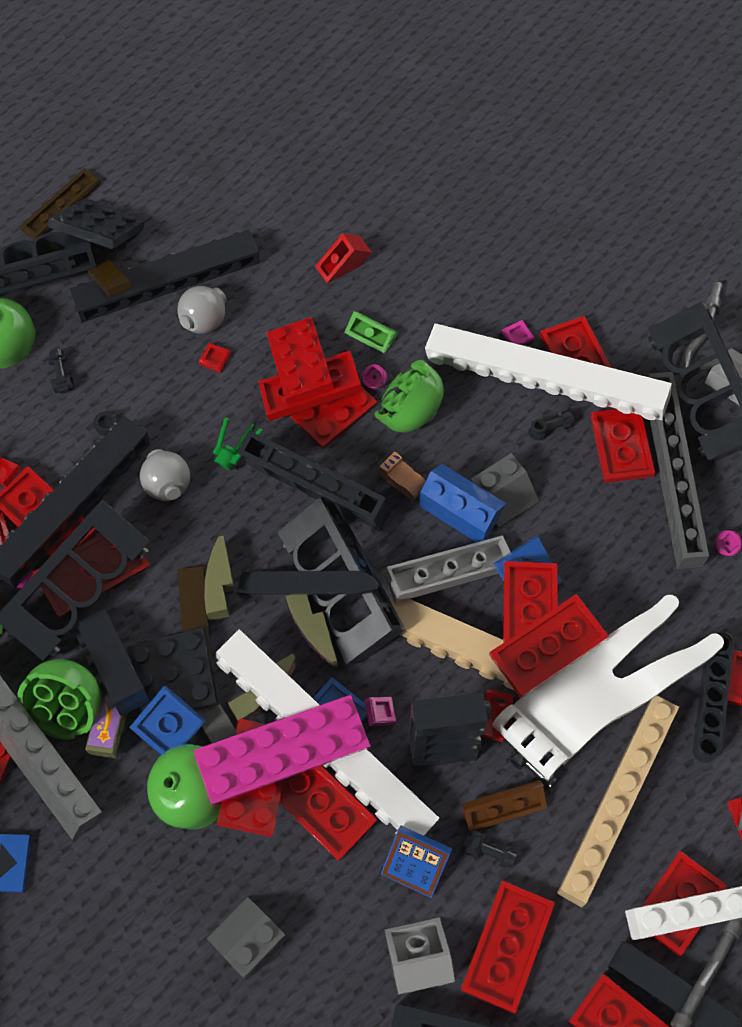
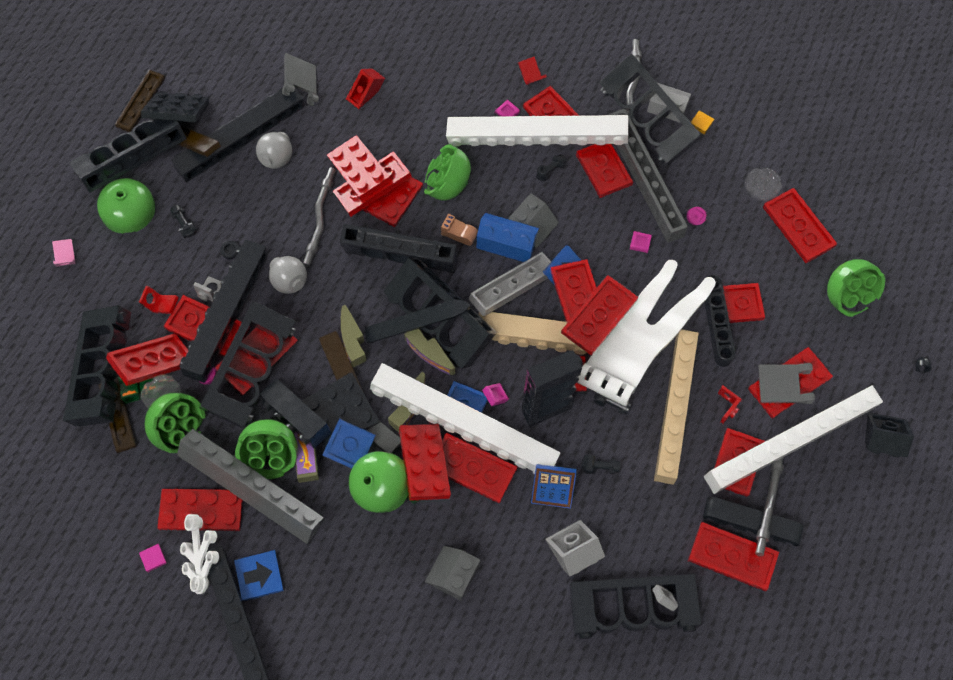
camera: 20 degrees left, 0 degrees up
(53, 469) = (204, 292): none -> light grey bracket
(214, 357) = (294, 182): red tile -> none
(228, 456) = (329, 249): green plant -> none
(253, 371) = (312, 247): none -> flat silver bar
(266, 222) = (300, 75): none -> dark grey flag
(281, 749) = (438, 436): dark pink plate -> none
(370, 332) = (402, 136): bright green slope -> none
(374, 377) = (415, 166): dark pink tile -> none
(504, 806) = (601, 433): reddish brown plate -> none
(507, 947) = (632, 524): red plate -> none
(564, 289) = (530, 70): none -> red bracket
(640, 557) = (640, 242): none -> dark pink tile
(696, 828) = (735, 400): none -> red bracket

